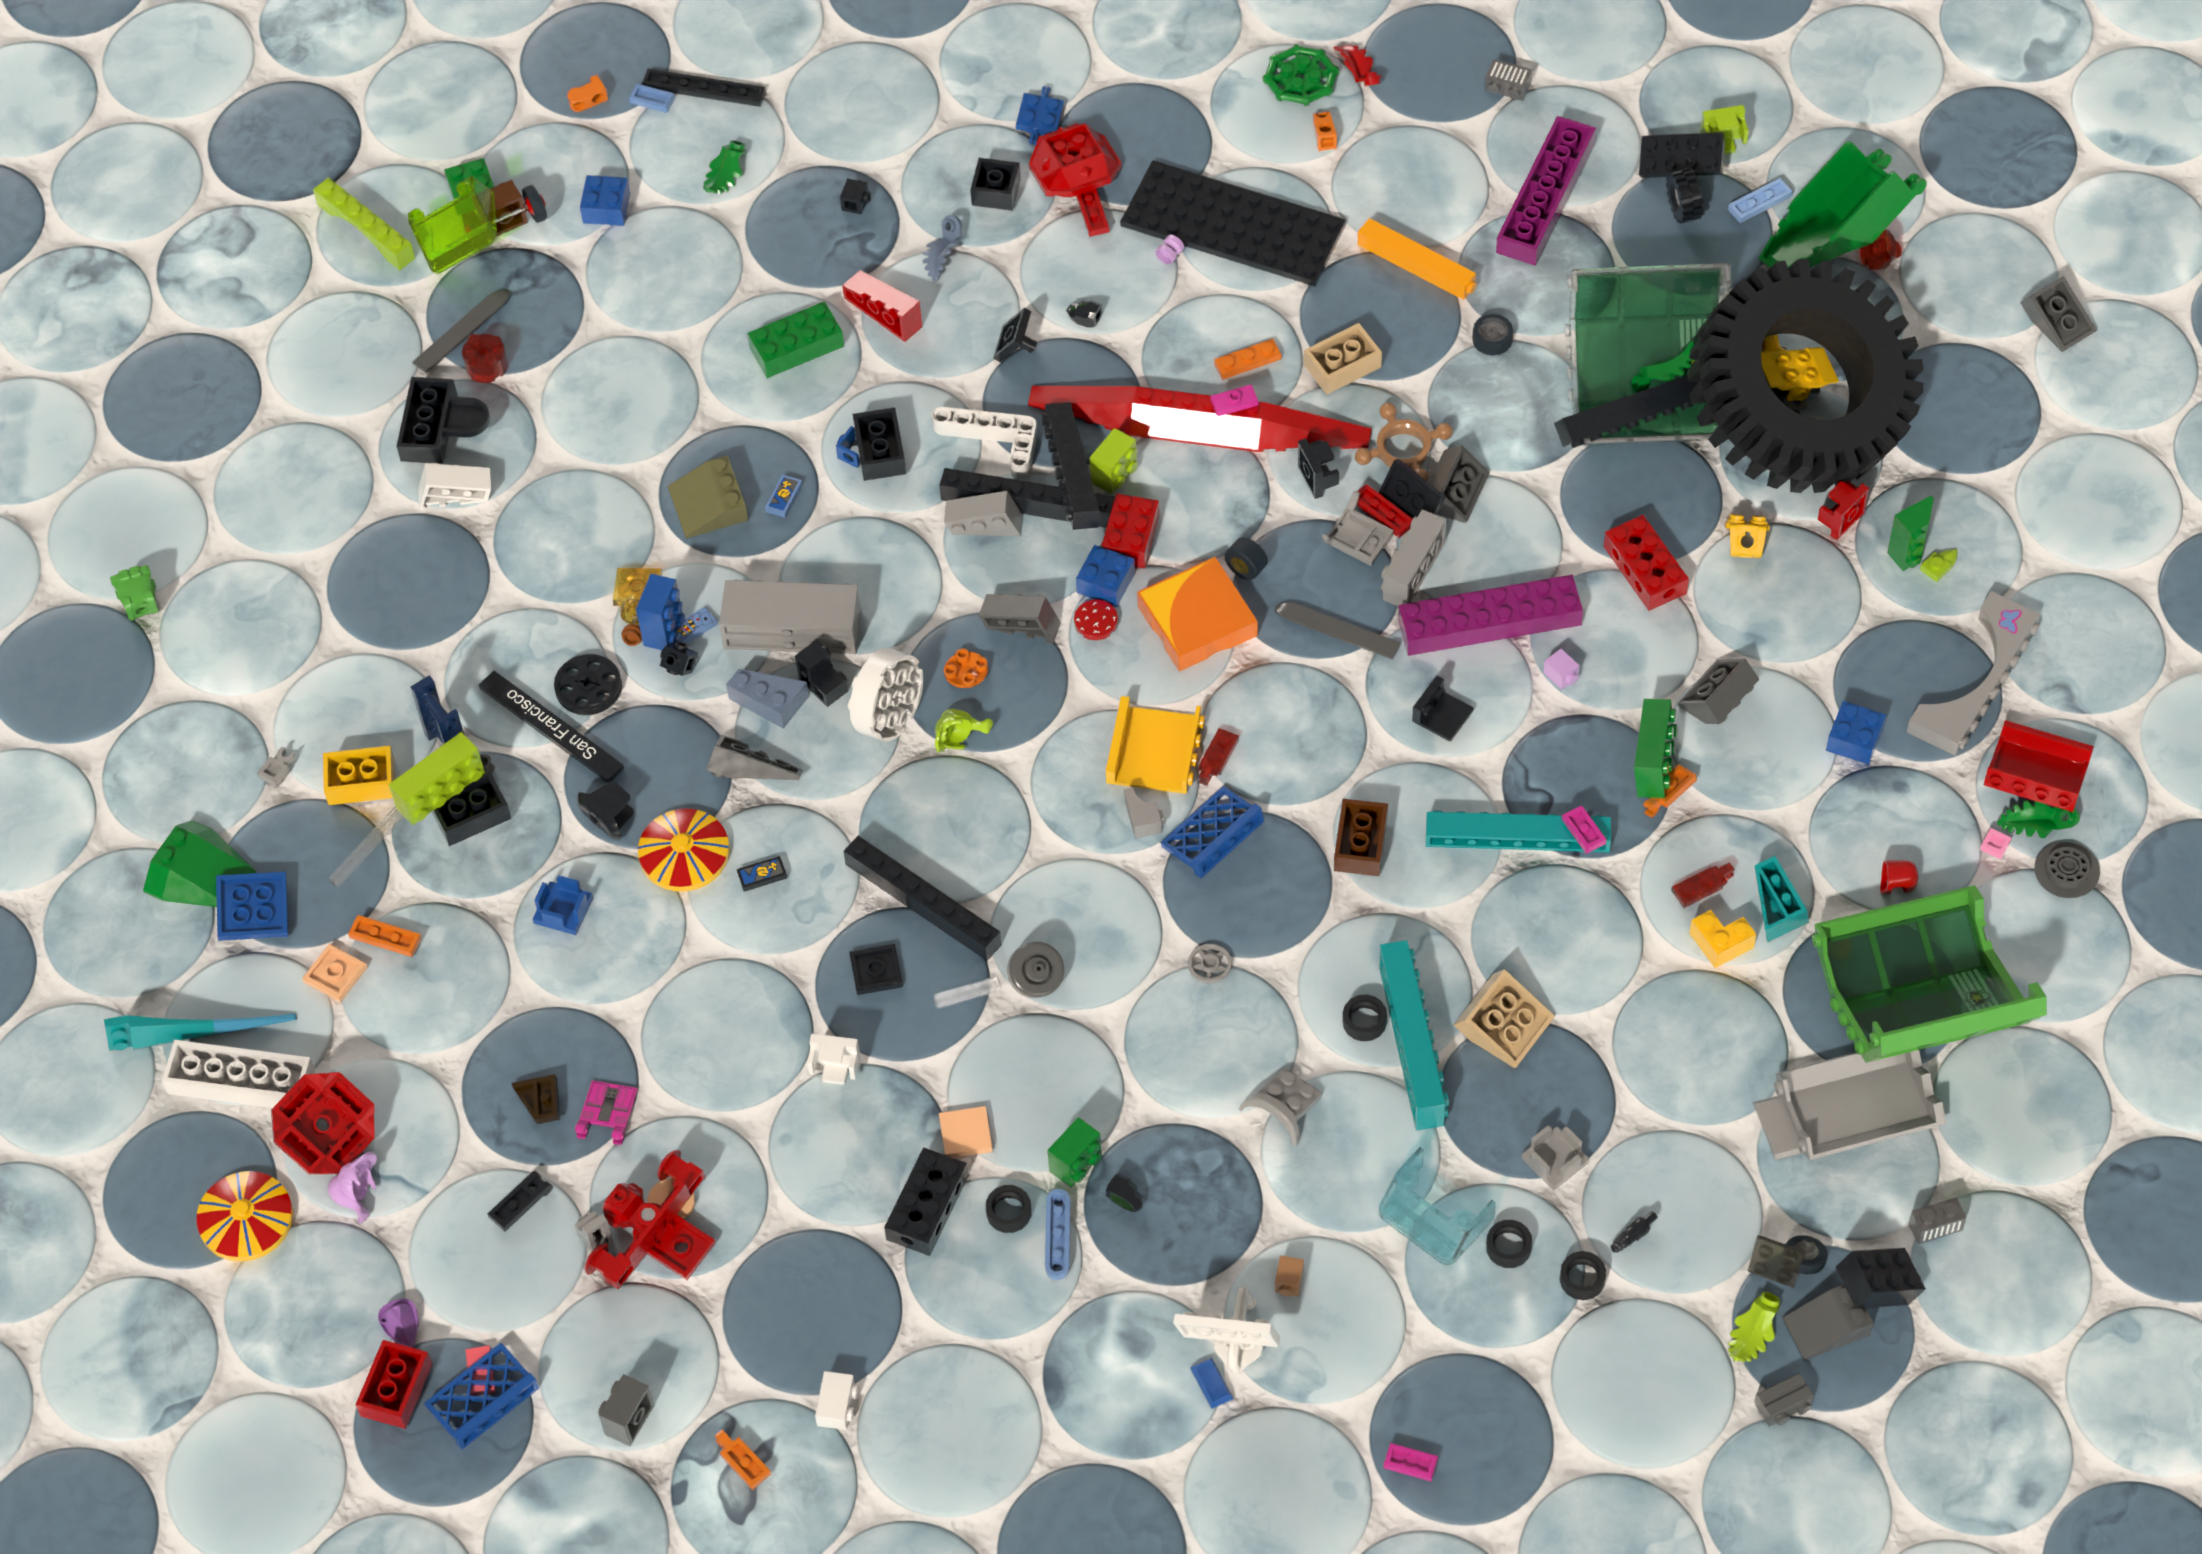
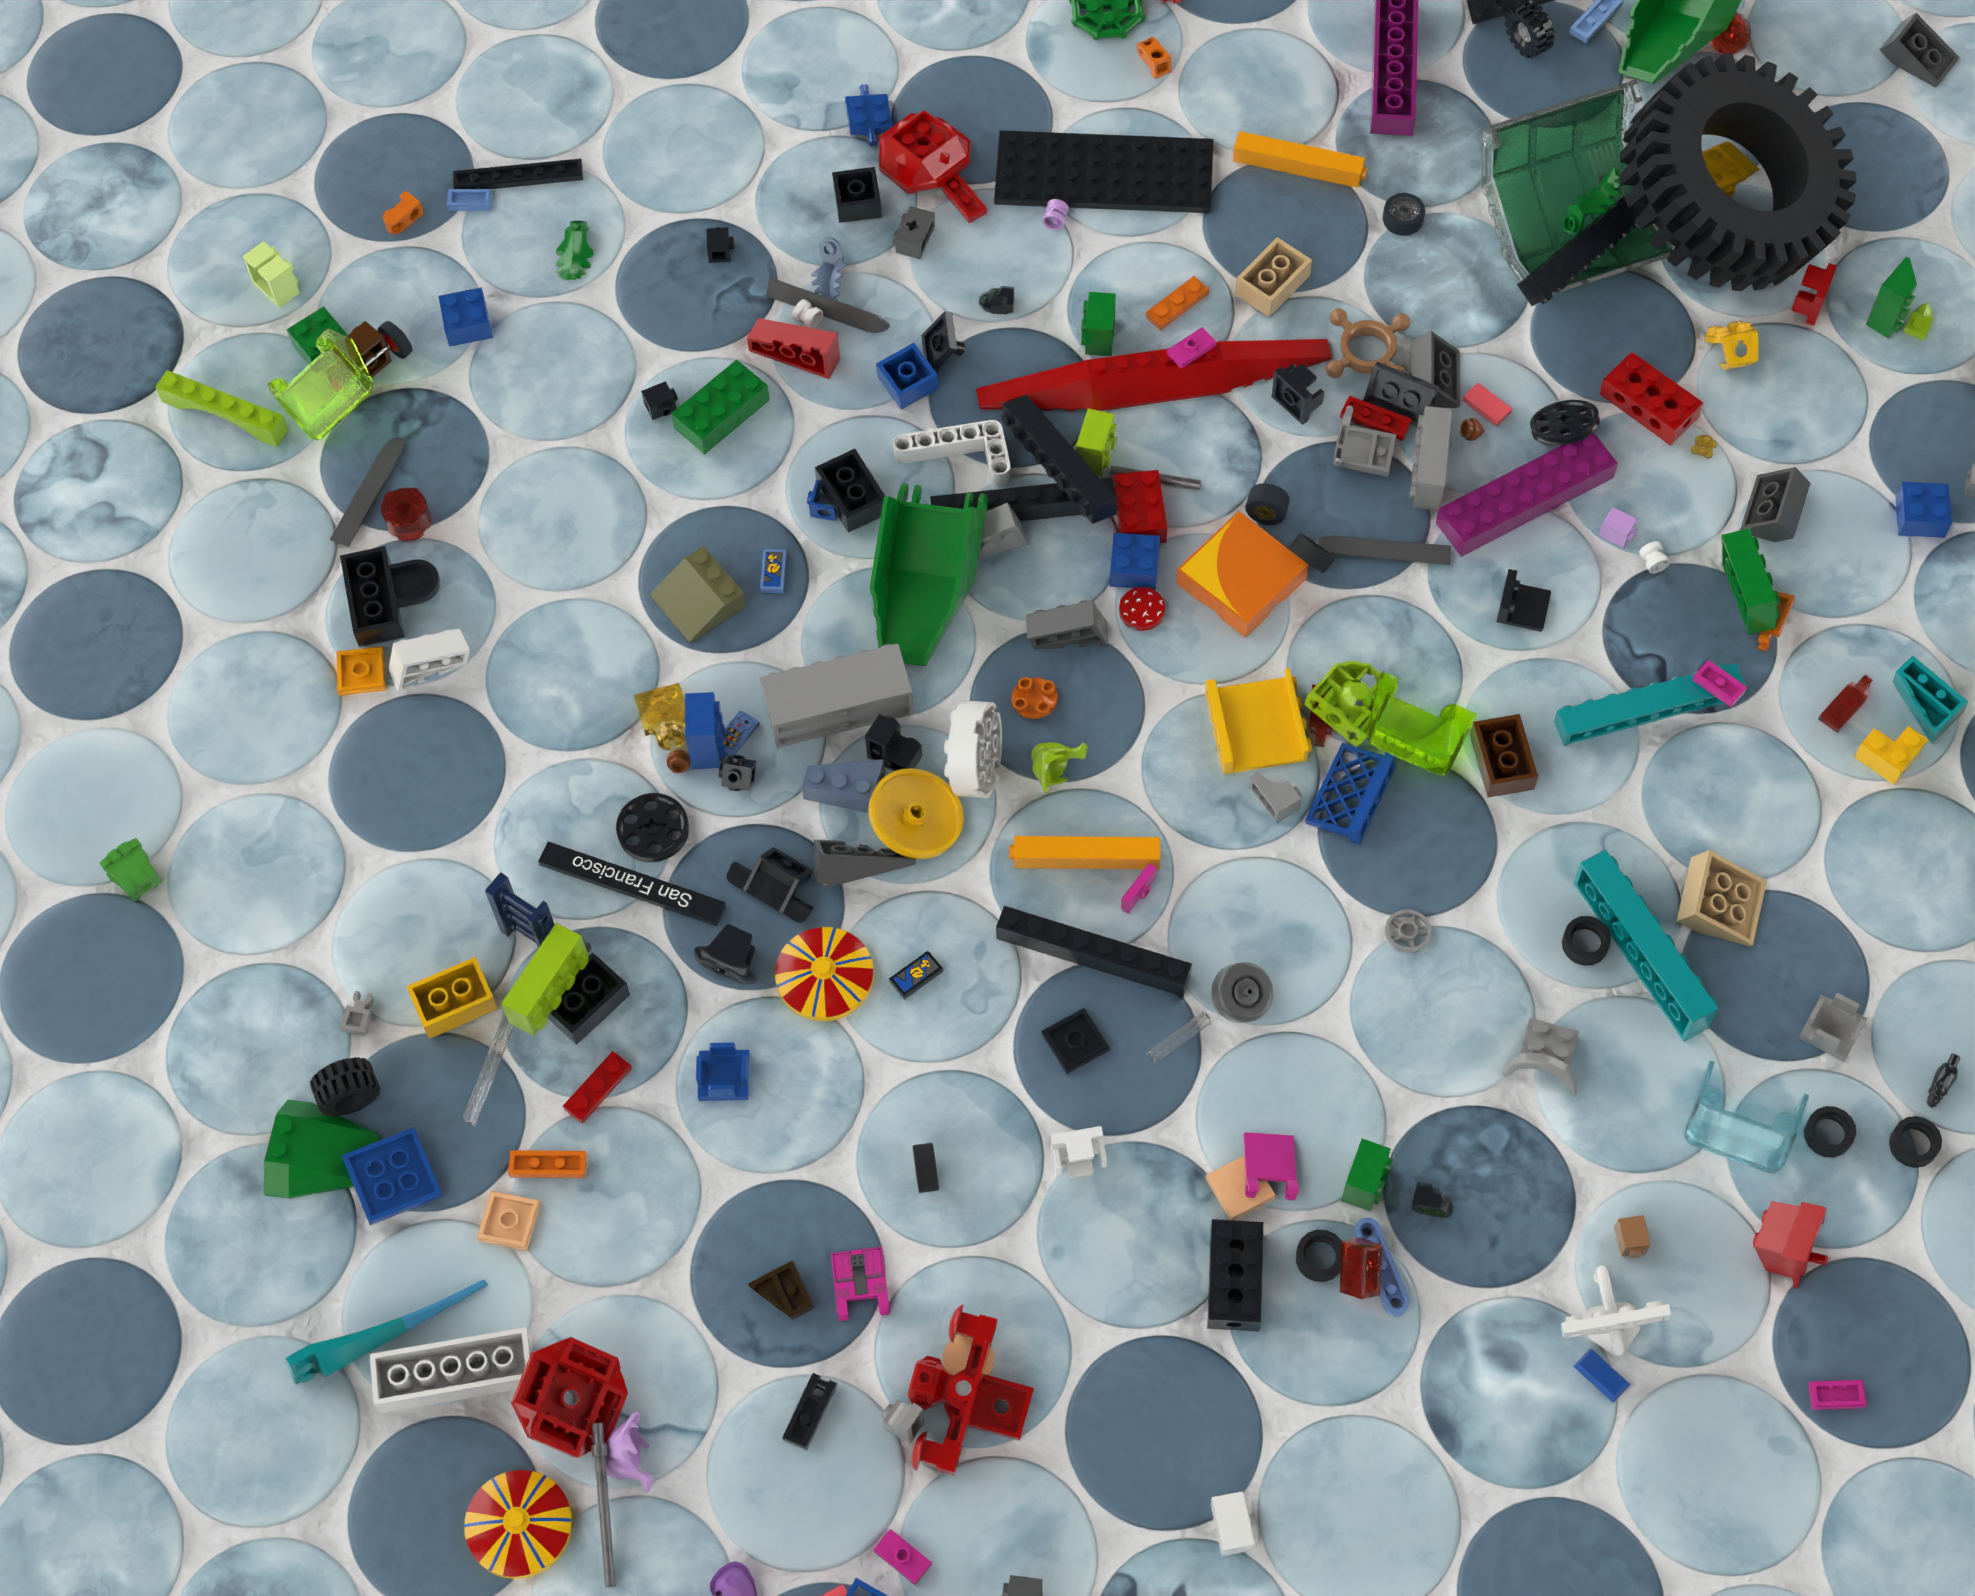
camera: 20 degrees left, 5 degrees up
(240, 820) = (344, 1086): none -> black tyre
(330, 1175) = (599, 1451): none -> flat silver bar
(394, 482) = (361, 671): none -> light orange tile
(451, 117) = (271, 274): none -> yellowish green piece
(452, 886) = (597, 1087): none -> red plate
(548, 1341) = (902, 1557): none -> dark pink plate
(672, 760) = (774, 882): none -> black plate
(698, 1032) = (925, 1167): none -> black tyre
(744, 319) = (659, 400): none -> black brick
(816, 737) = (915, 813): none -> yellow dish
(909, 281) = (806, 313): none -> white wheel
(910, 528) = (923, 570): none -> green windscreen
(927, 277) = (831, 308): none -> dark grey piece
(953, 813) = (1085, 852): none -> light orange brick
(971, 357) = (907, 376): none -> blue brick
(985, 857) = (1139, 888): none -> dark pink plate
(999, 1116) = (1269, 1159): none -> dark pink flag
(1034, 232) = (914, 232): none -> dark grey brick
(1034, 1226) = (1360, 1268): none -> clear red brick
(1163, 357) = (1098, 323): none -> green brick
(1166, 511) = (1166, 479): none -> flat silver bar
(1251, 731) = (1342, 690): none -> lime connector
(1266, 612) = (1312, 553): none -> black tyre
(1288, 793) = (1414, 733): none -> clear neon green windscreen
(1424, 1318) = (1788, 1238): none -> red piece
(1467, 545) = (1471, 429): none -> dark orange plate
(1492, 527) = (1487, 404): none -> coral tile
(1552, 561) = (1565, 422): none -> black wedge
(1583, 705) = (1654, 557): none -> white wheel
(1678, 614) = (1706, 441): none -> clear yellow plate

